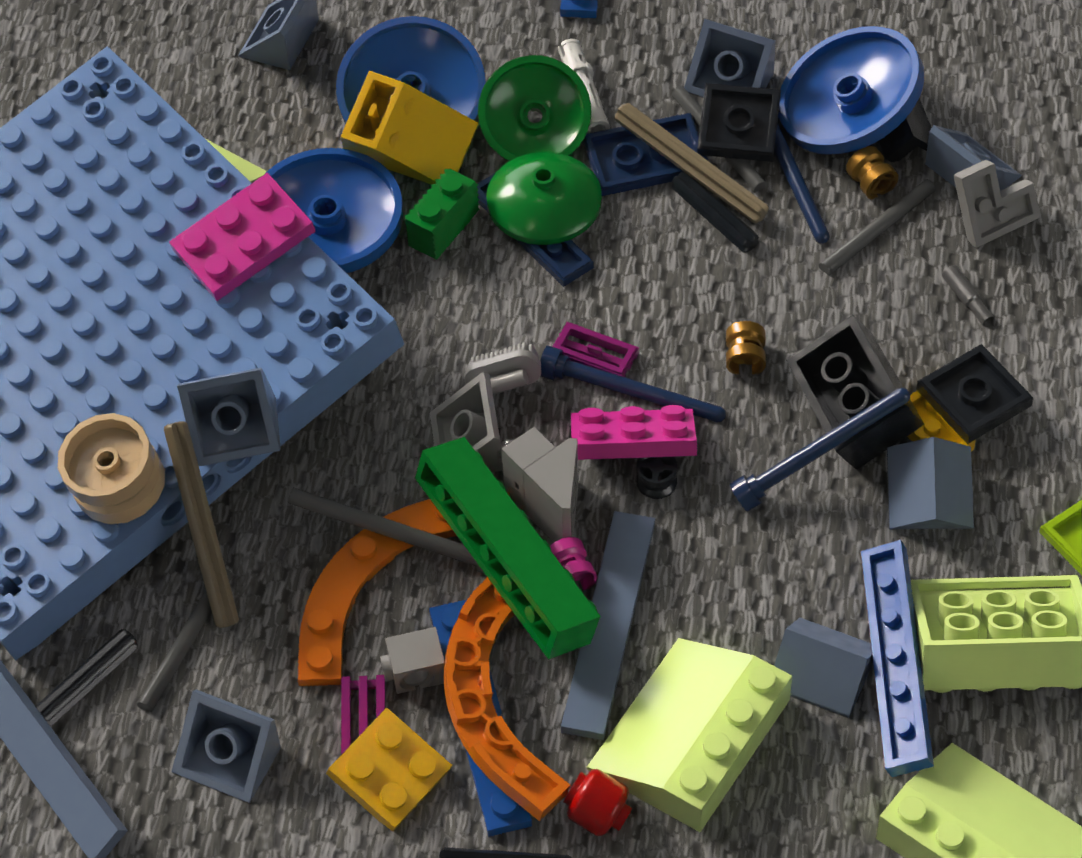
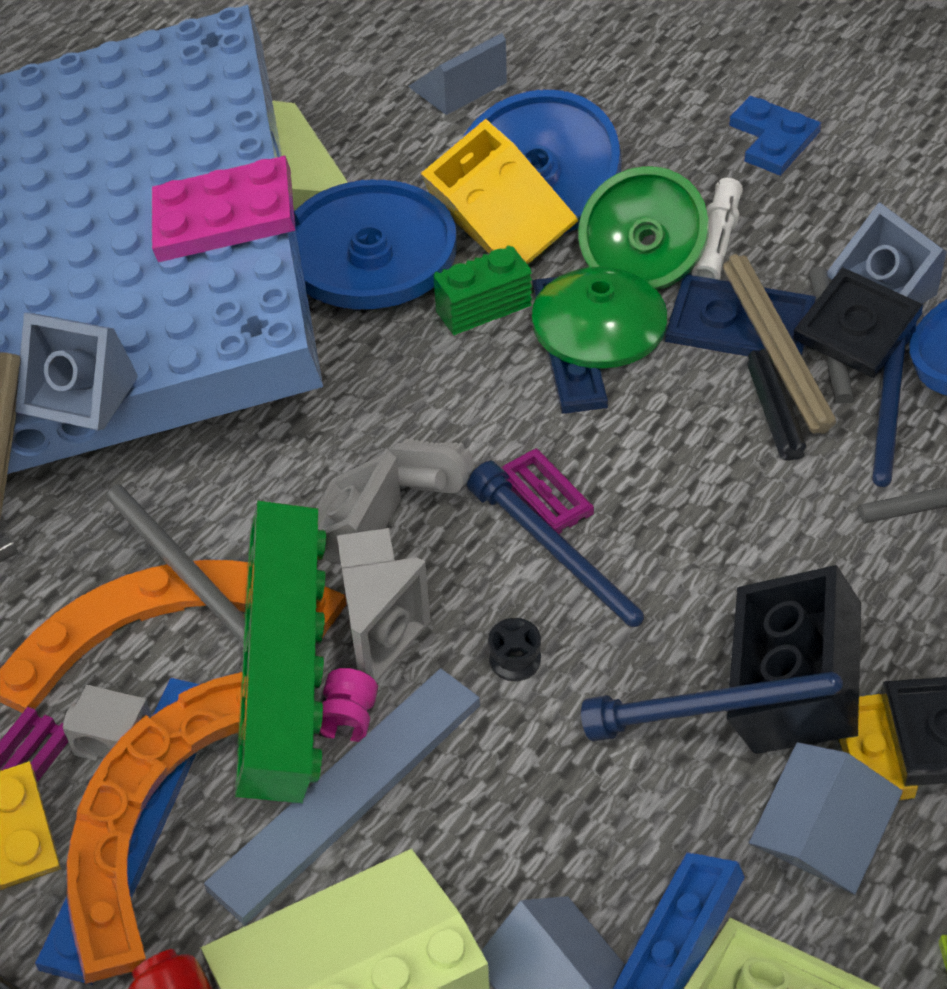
camera: 30 degrees right, 5 degrees down
(634, 433) = (516, 592): dark pink plate -> none
(745, 346) = (711, 555): pearl gold wheel -> none

